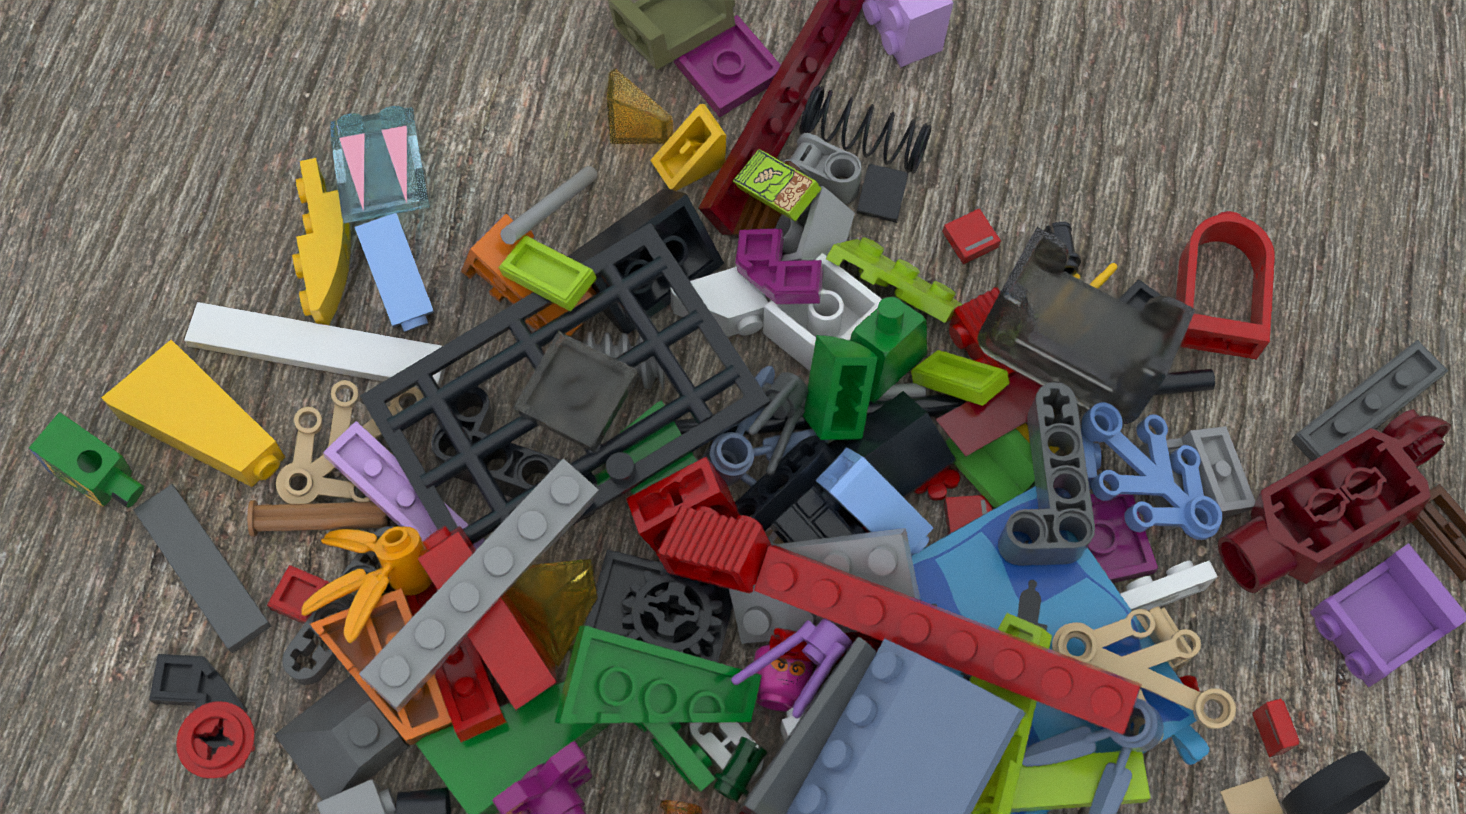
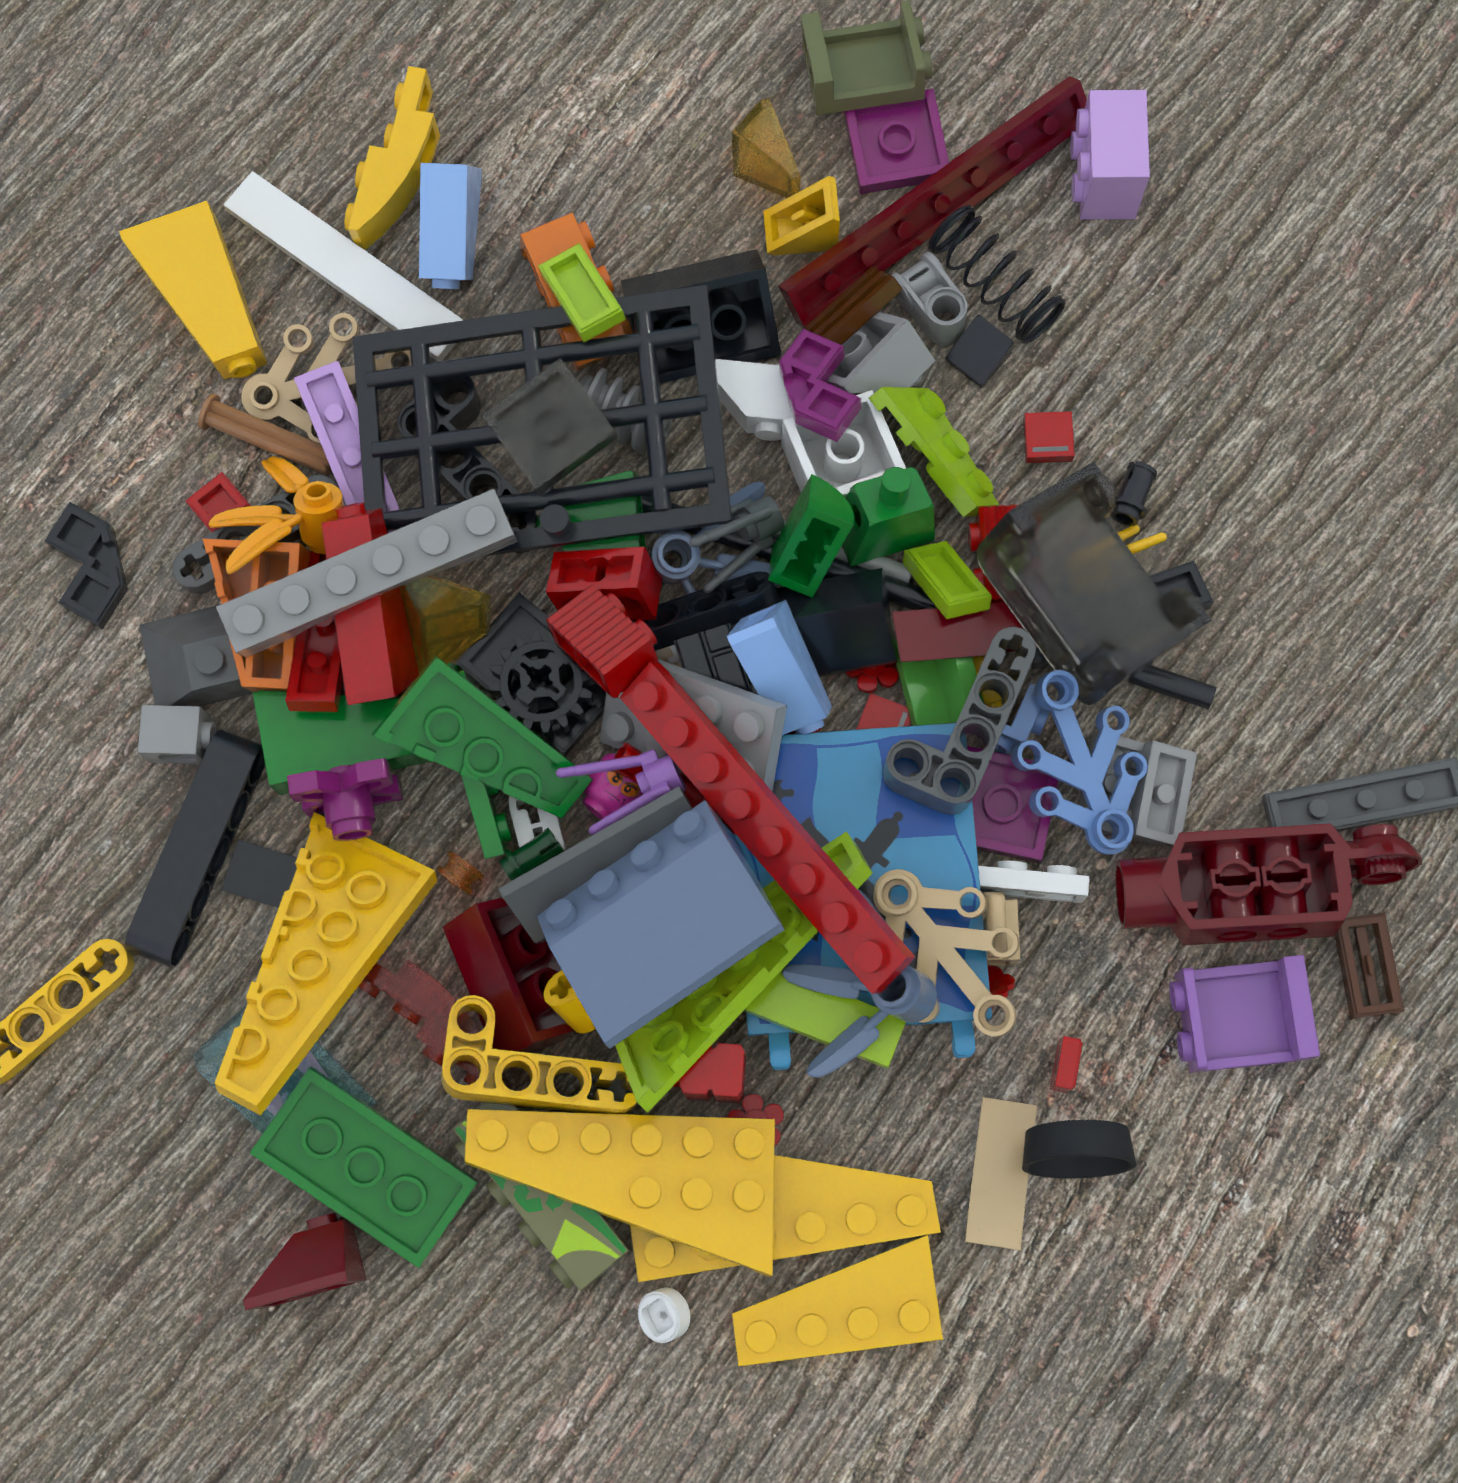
camera: 35 degrees right, 10 degrees up
(85, 463) = (79, 290): green torso -> none
(202, 568) = (144, 438): dark grey tile -> none
(206, 722) = (83, 585): red gear -> none
(379, 164) = (482, 103): clear light blue slope -> none
(548, 205) = (626, 219): light grey bar -> none
(777, 185) = (864, 297): tile -> none
(1223, 334) = (1249, 658): red window -> none

